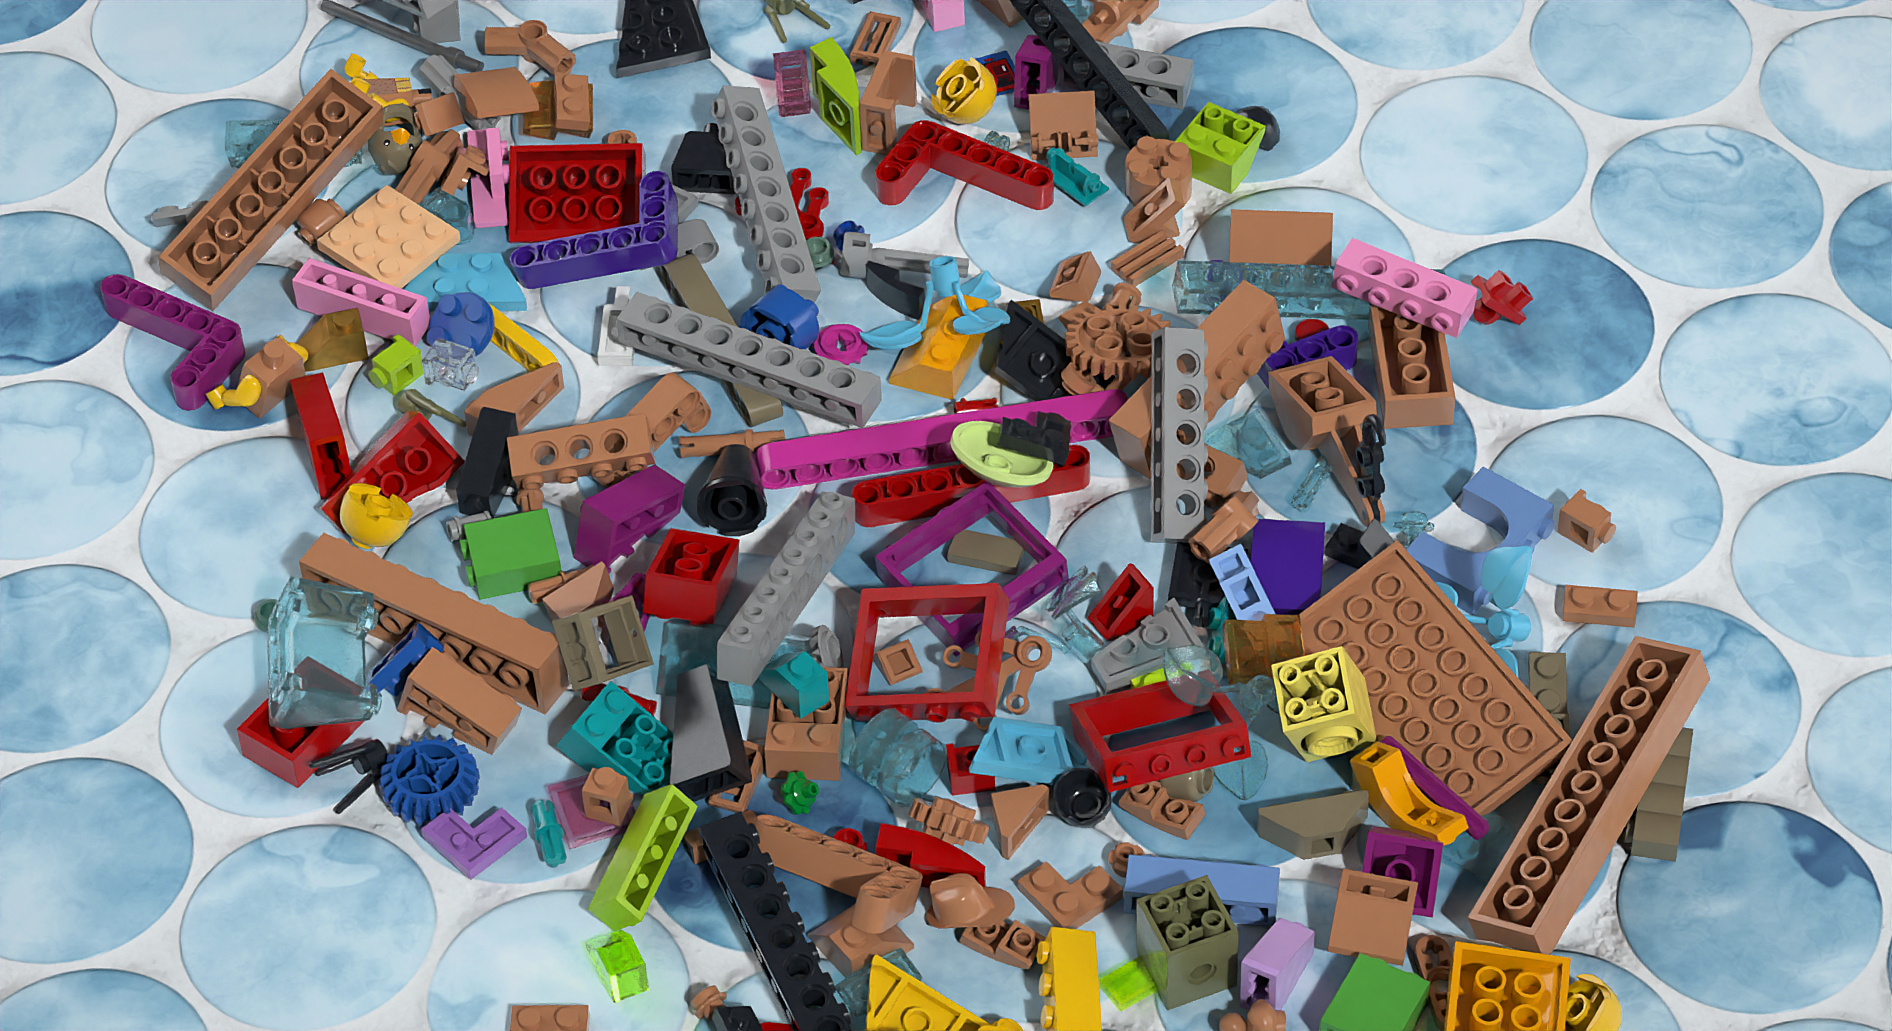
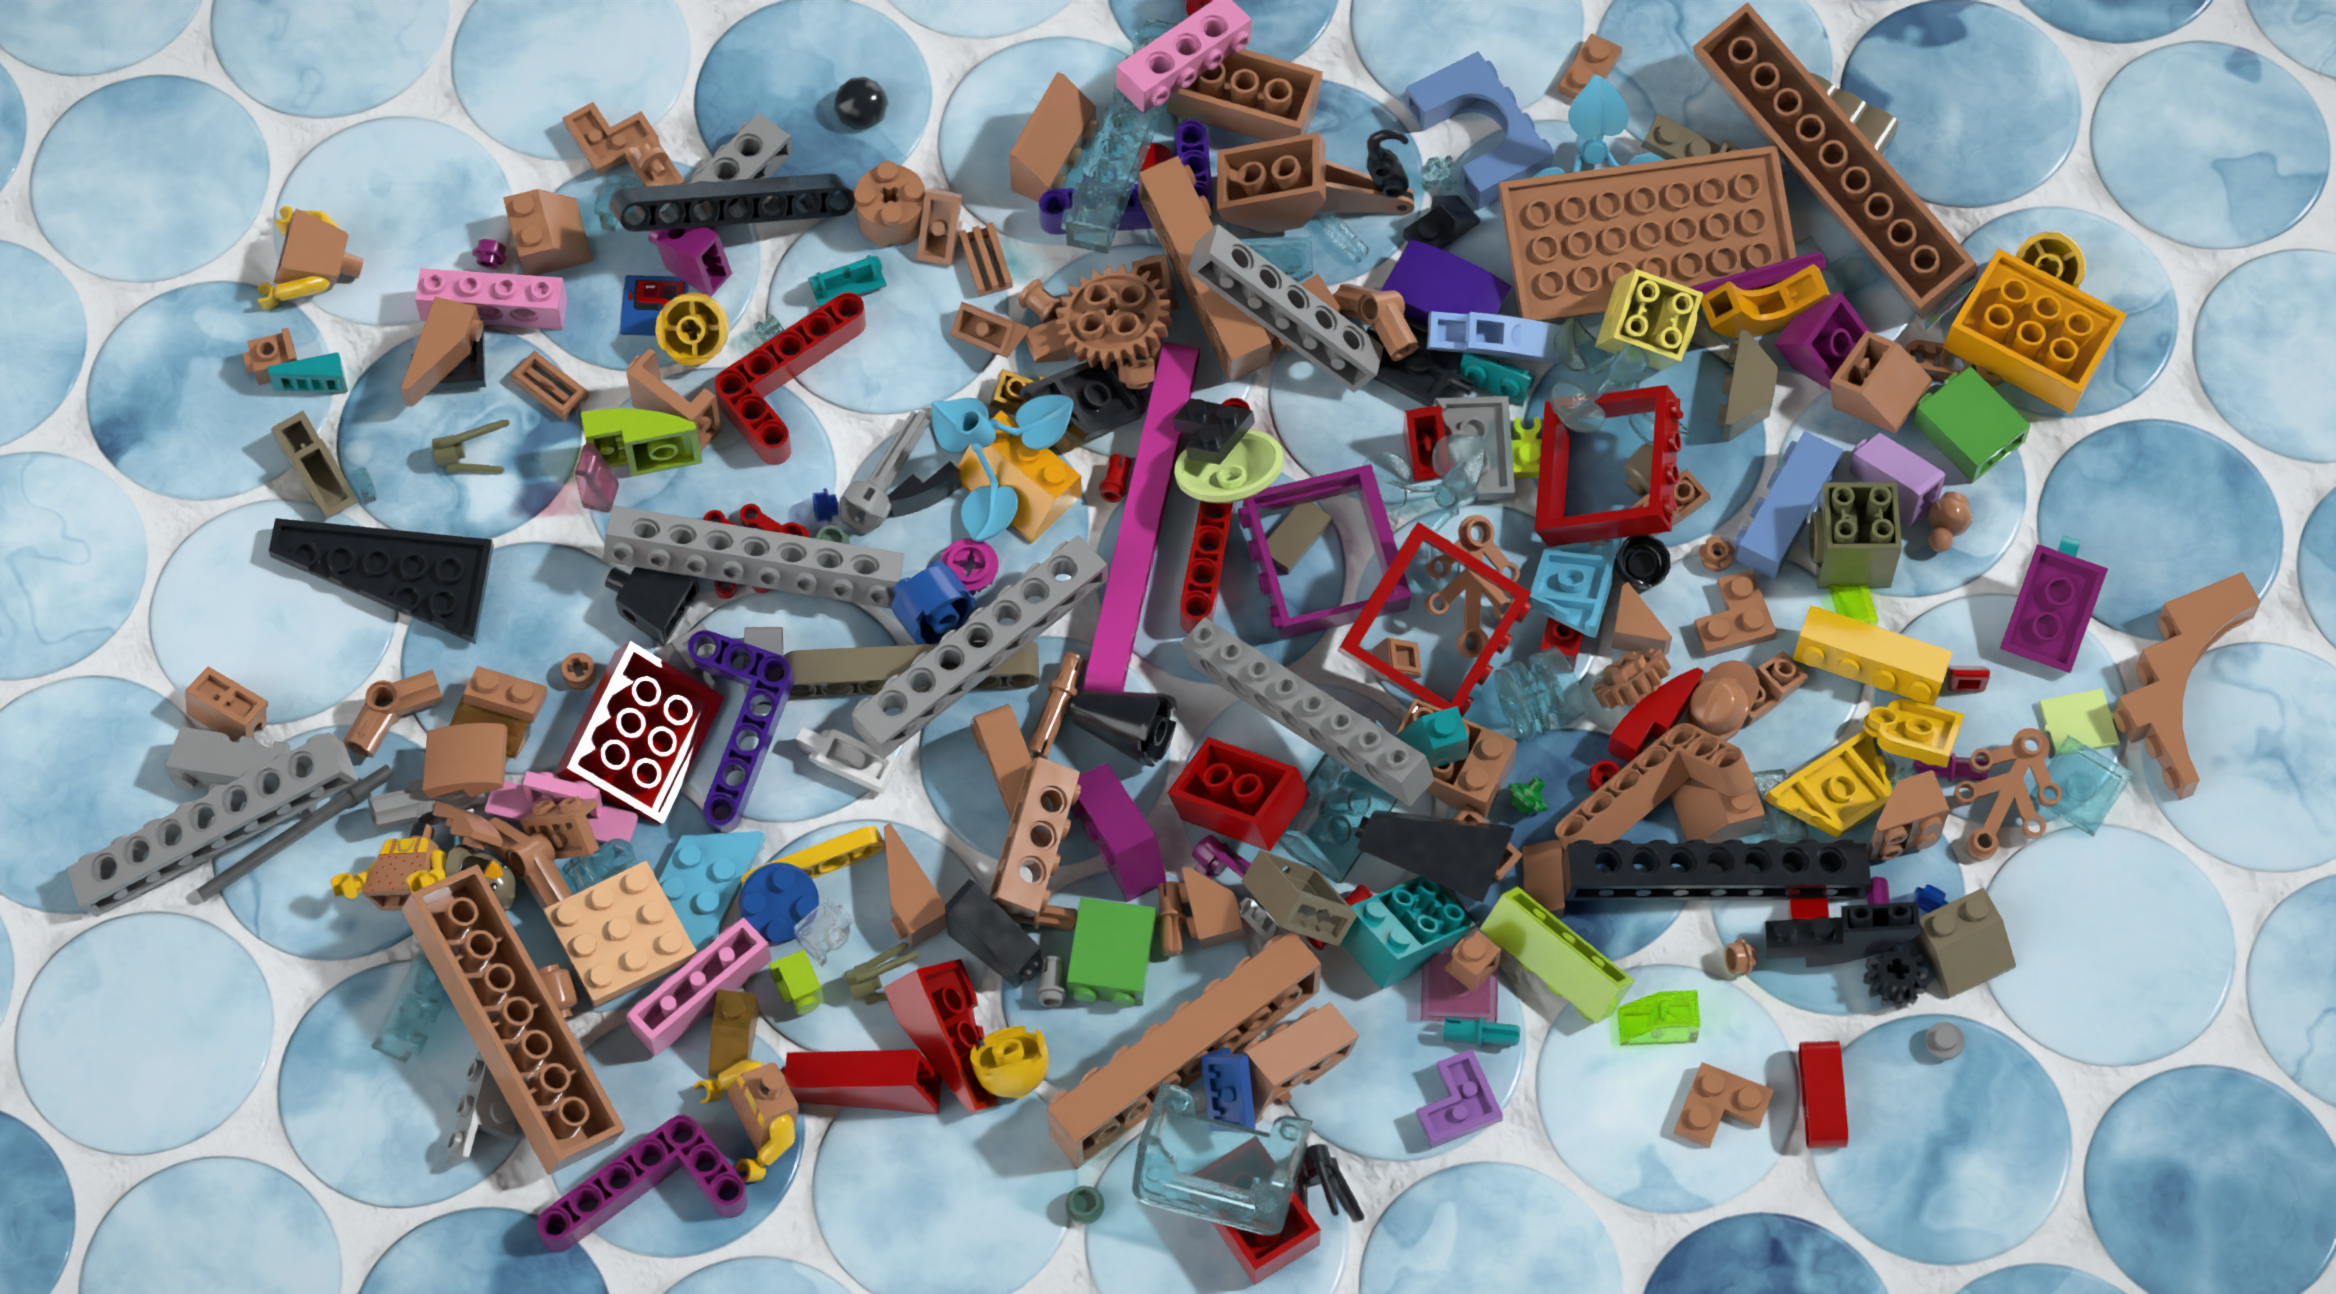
camera: 70 degrees left, 15 degrees up
(429, 779) = (1356, 1121): blue gear -> none
(826, 647) = (1376, 710): light grey gear -> none
(1063, 122) = (783, 259): nougat hinge -> none
(1221, 146) = (880, 132): lime slope -> none
(1257, 645) = (1560, 344): clear orange slope -> none
(1585, 522) = (1496, 37): nougat brick -> none

